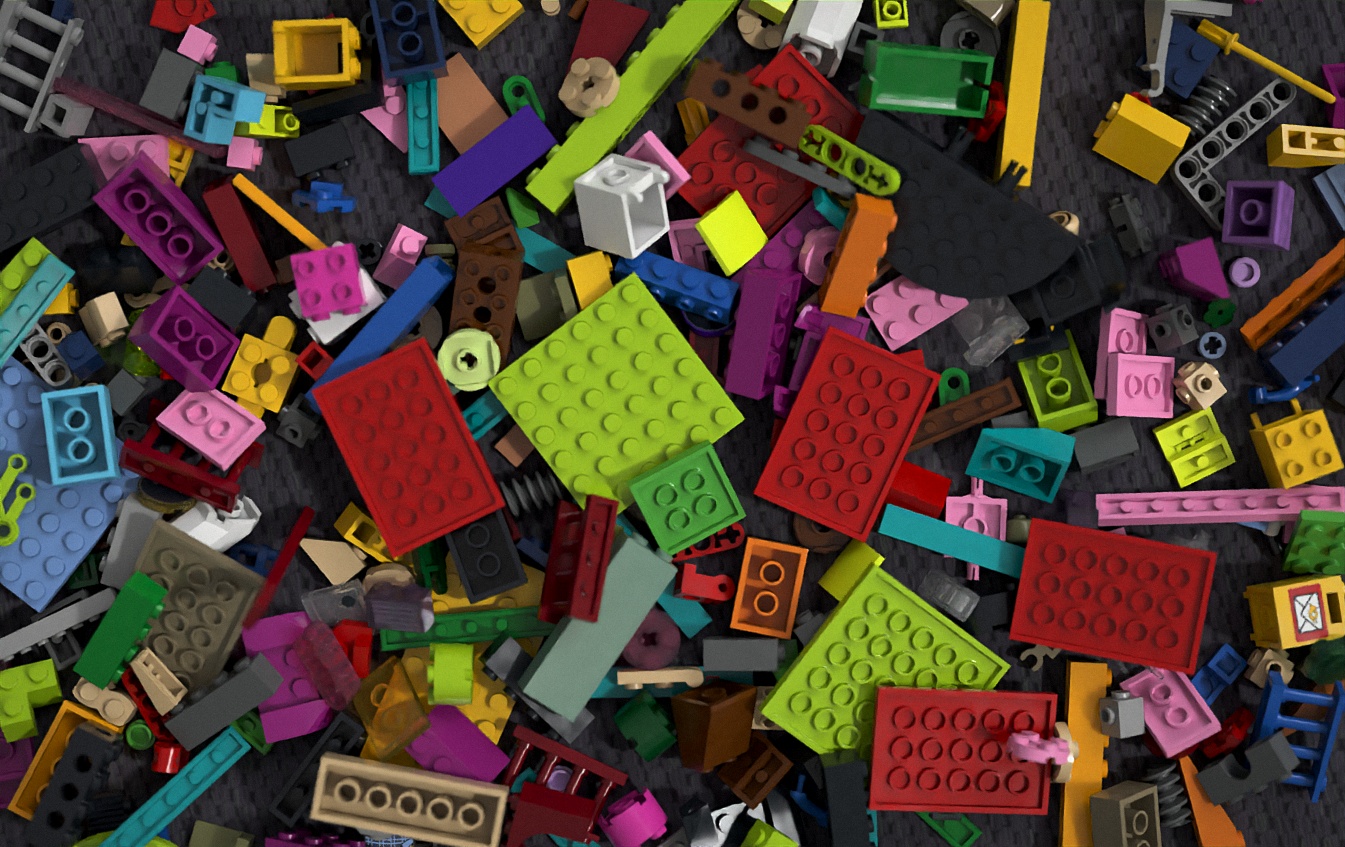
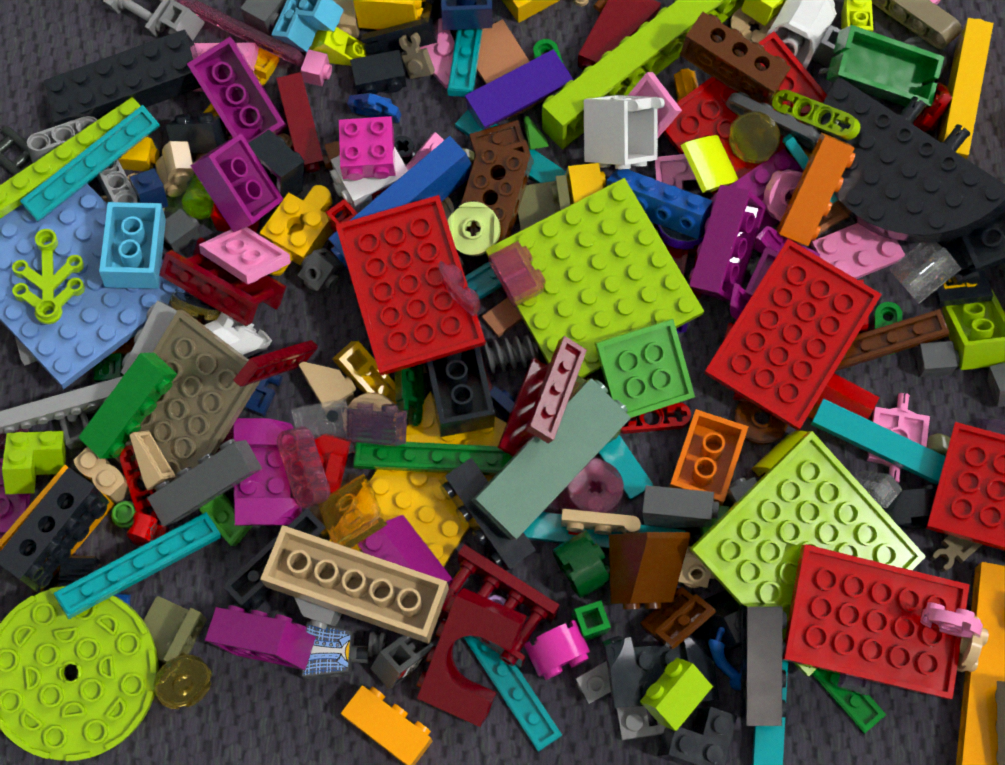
camera: 15 degrees right, 20 degrees down
(278, 213) = (326, 98): light orange tile -> none
(363, 129) = (415, 59): none -> dark tan plate
(450, 674) = (412, 487): lime brick -> none
(457, 446) = (454, 283): none -> clear pink slope
(527, 415) = (516, 273): none -> clear pink brick
(584, 73) = (605, 39): tan plate -> none
(663, 785) = (591, 620): none -> green brick
(702, 587) = (648, 452): red leg -> none
(780, 191) = (754, 137): none -> clear yellow tile
(1022, 460) = (946, 378): teal slope -> none

